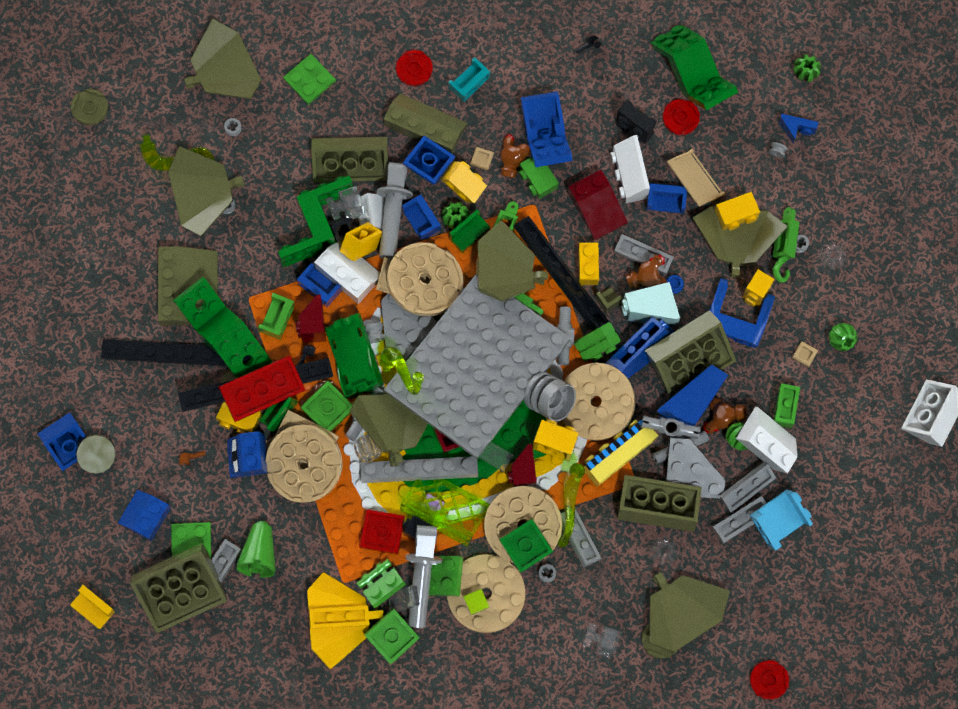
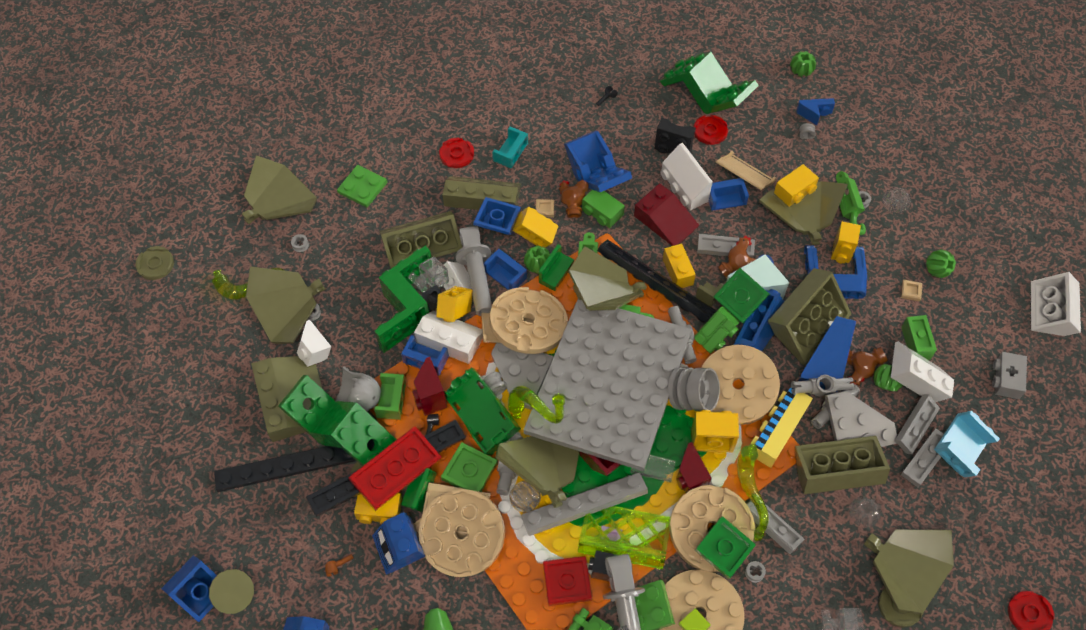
camera: 15 degrees left, 15 degrees down
(218, 242) = (312, 346): none -> white slope
(249, 303) = (359, 389): none -> light grey piece
(629, 318) = (741, 295): none -> green tile
(863, 459) = (1010, 375): none -> light grey brick

